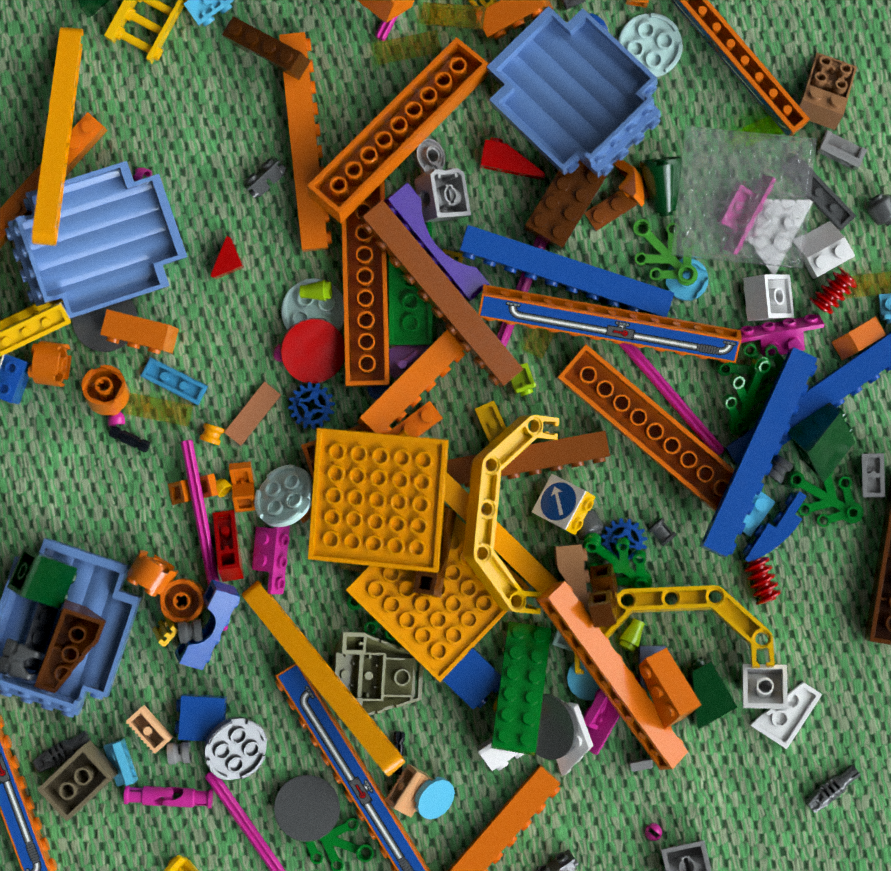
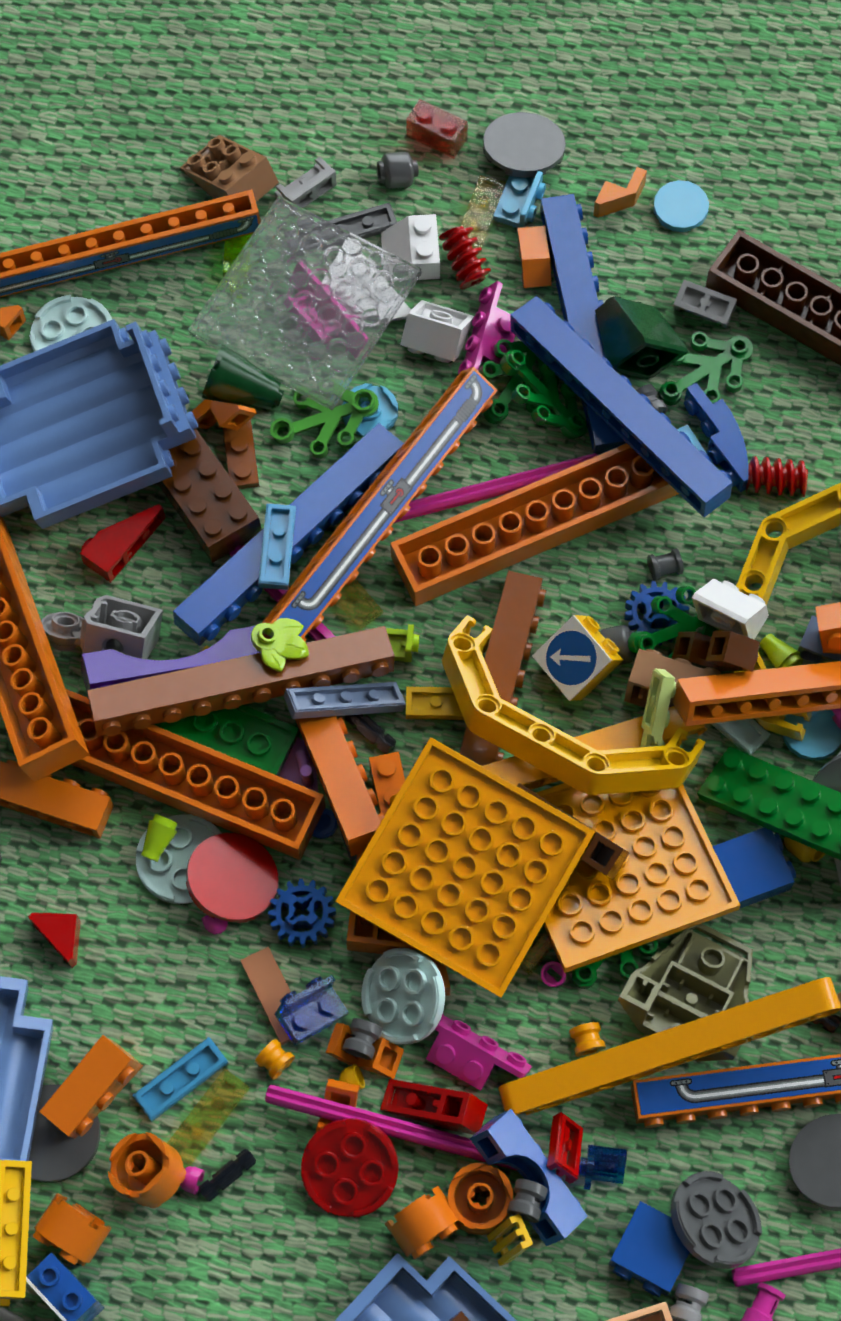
camera: 60 degrees left, 20 degrees down
(166, 512) = (349, 1167): none -> red tile
(237, 637) = (561, 1146): none -> red tile
(239, 664) = (603, 1165): none -> clear blue bracket
(246, 483) = (363, 1036): none -> dark grey wheel
(250, 442) = (310, 1010): none -> clear blue bracket
(313, 621) = (587, 1039): none -> light orange wheel
(341, 581) = (549, 979): none -> dark pink hinge
(455, 390) = (372, 732): none -> black axle
(462, 366) = (344, 700): none -> sand blue tile
(475, 310) = (283, 642): none -> lime plate
(543, 574) = (656, 711): none -> yellowish green hinge
(546, 270) = (277, 546): none -> dark azure tile
(639, 592) = (729, 609): none -> white slope

